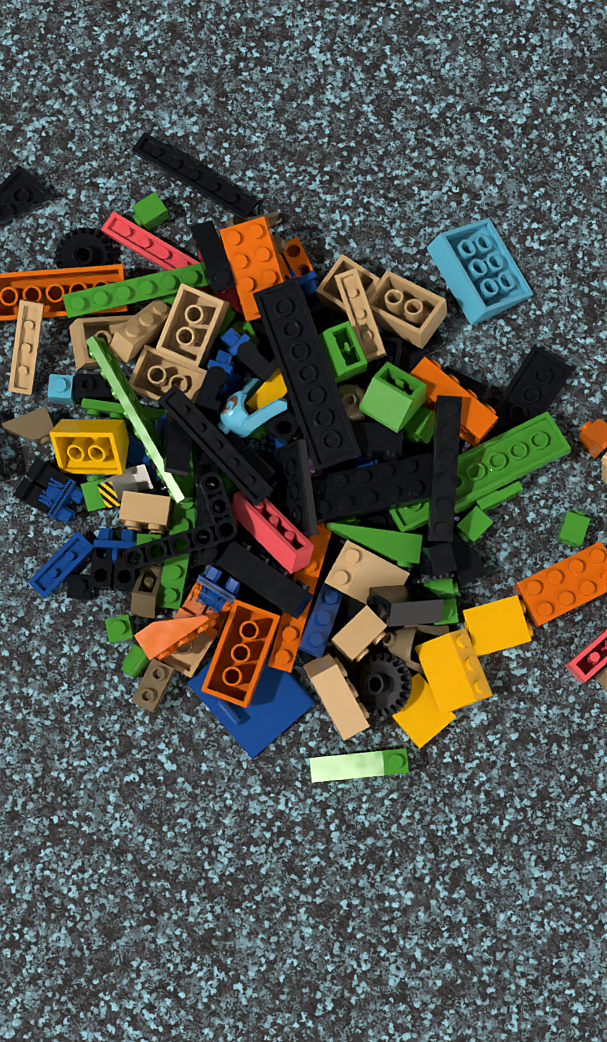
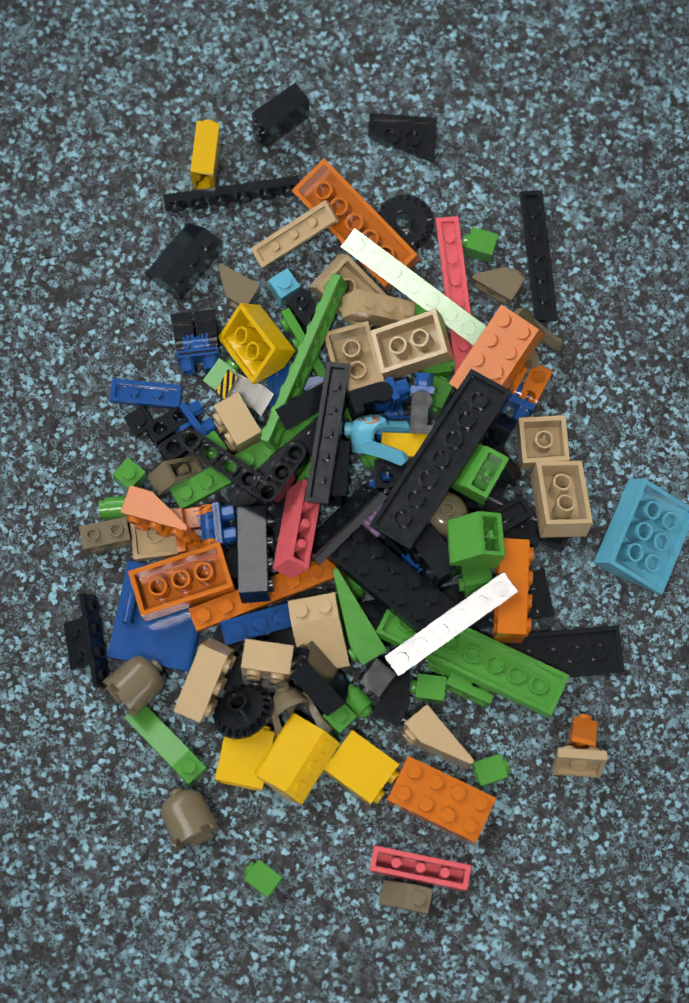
camera: 45 degrees right, 5 degrees down
(193, 214) = (499, 284): none -> dark tan slope
(212, 257) = (478, 316): black slope -> none
(228, 766) = (86, 641): none -> black bracket
(294, 753) = (135, 683): none -> dark tan cylinder
(360, 314) = (524, 466): tan plate -> none
(433, 793) = (187, 818): none -> dark tan cylinder
(513, 551) = (433, 737): none -> tan slope
(524, 770) = (262, 878): none -> bright green brick

